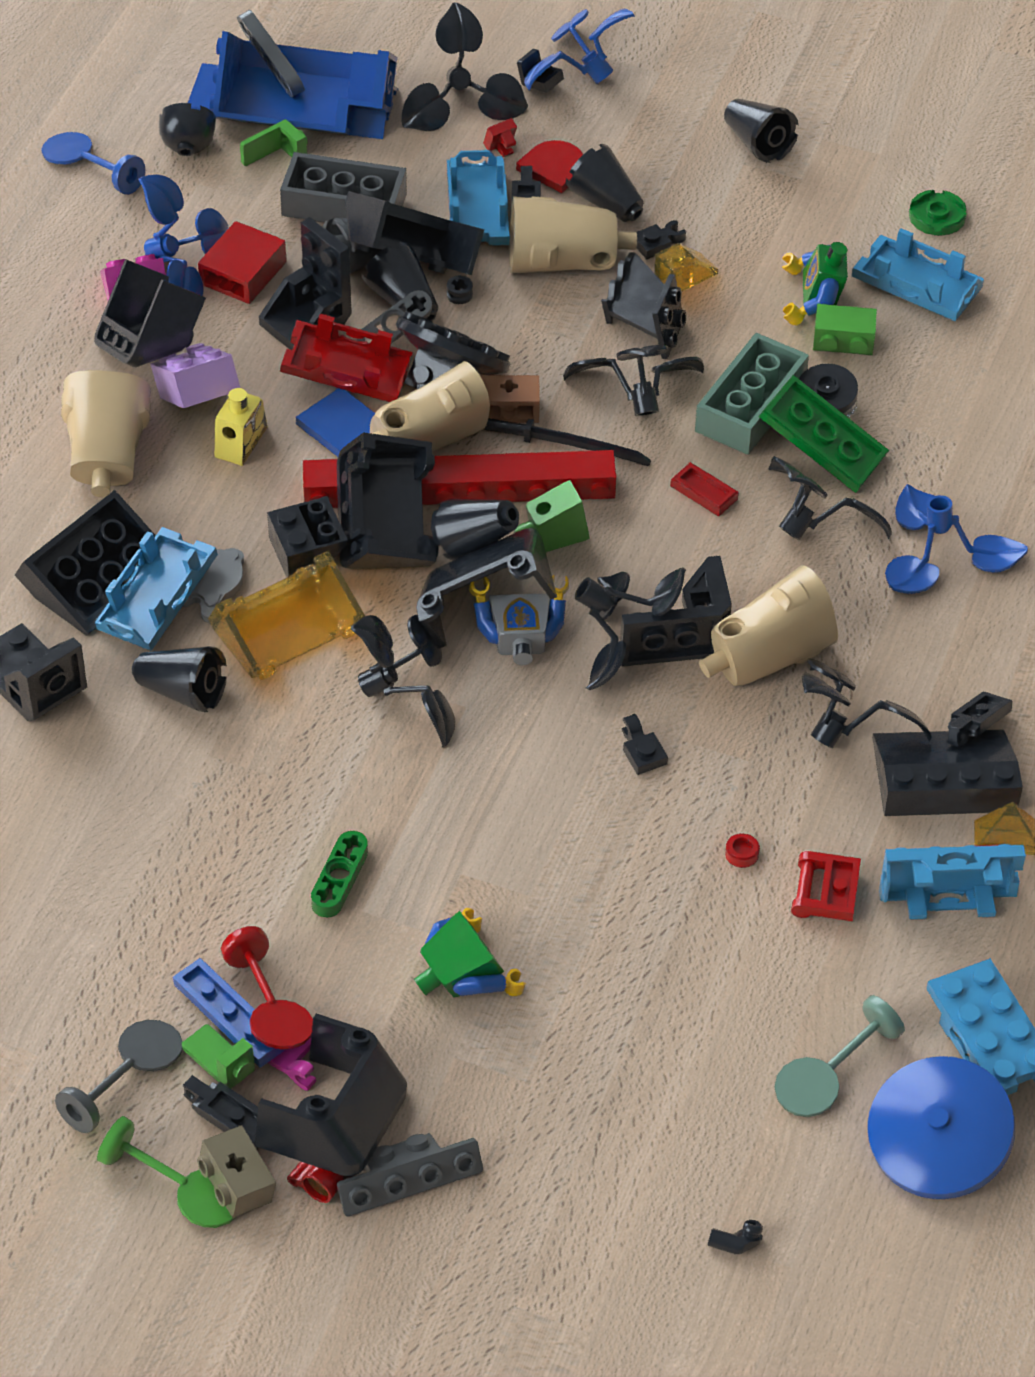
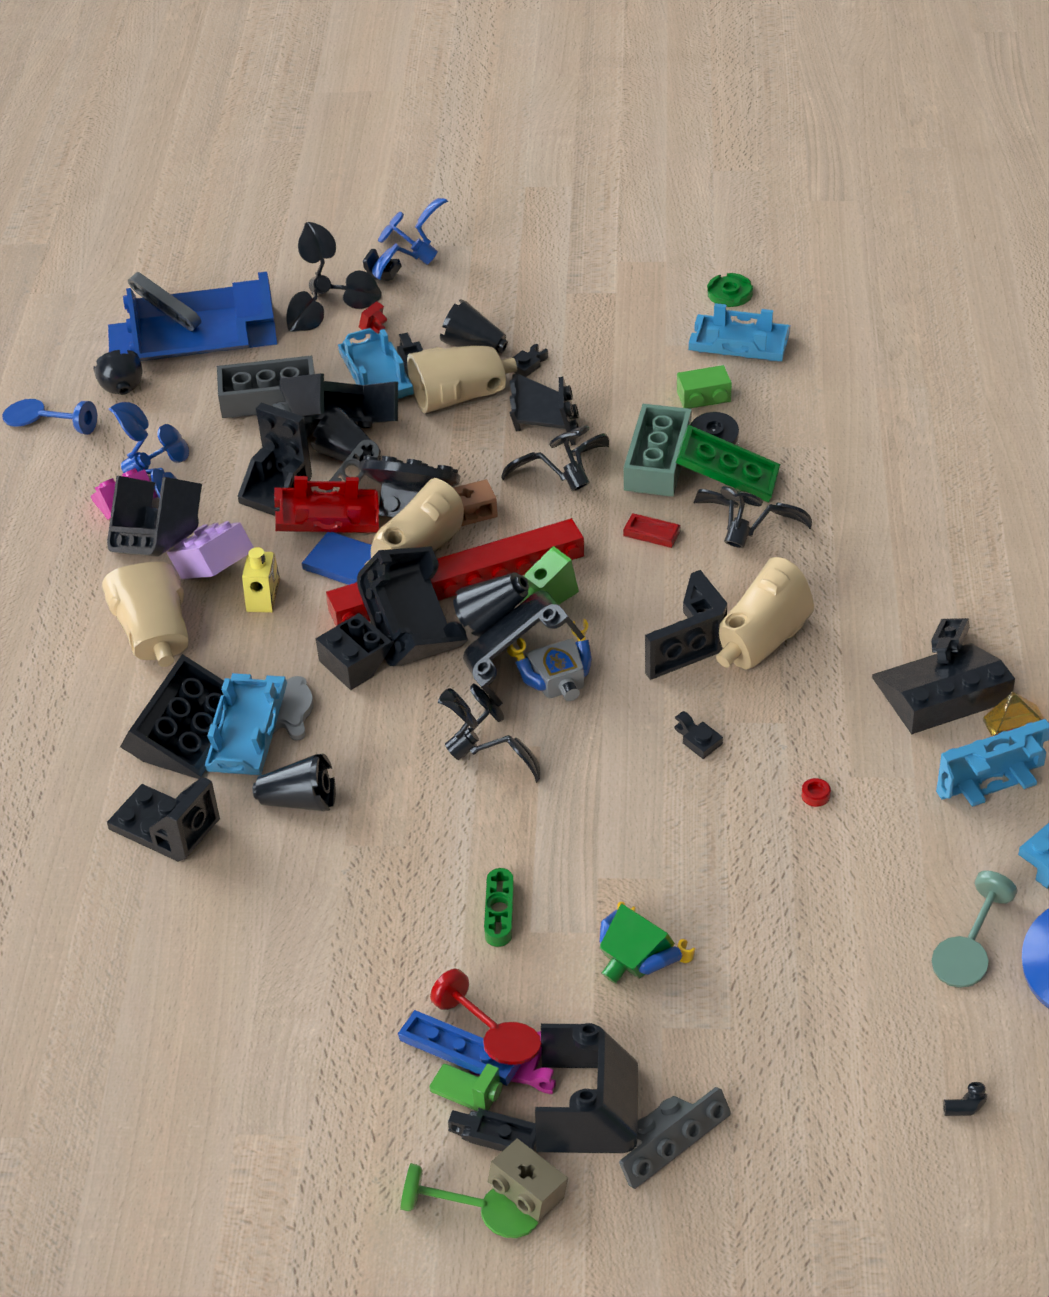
camera: 15 degrees left, 5 degrees down
(144, 1046) = (396, 1099): dark grey piece -> none
(242, 262) = (207, 458): red brick -> none
(278, 136) = (196, 360): bright green bracket -> none
(287, 617) = (367, 715): clear yellow windscreen -> none
(316, 1181) = (596, 1166): red piece -> none
(456, 283) = (390, 435): black bush -> none
(530, 431) = (516, 522): black sword -> none
(551, 163) = (422, 327): red tile -> none
(603, 599) = (619, 628): black plant -> none
(687, 265) = (553, 368): clear yellow slope -> none
(763, 128) = (572, 262): black cone -> none
(822, 278) = (670, 353): torso -> none
(833, 722) = (840, 673): black plant -> none
(838, 886) = (905, 795): red plate -> none
(918, 509) = (847, 549): blue plant -> none

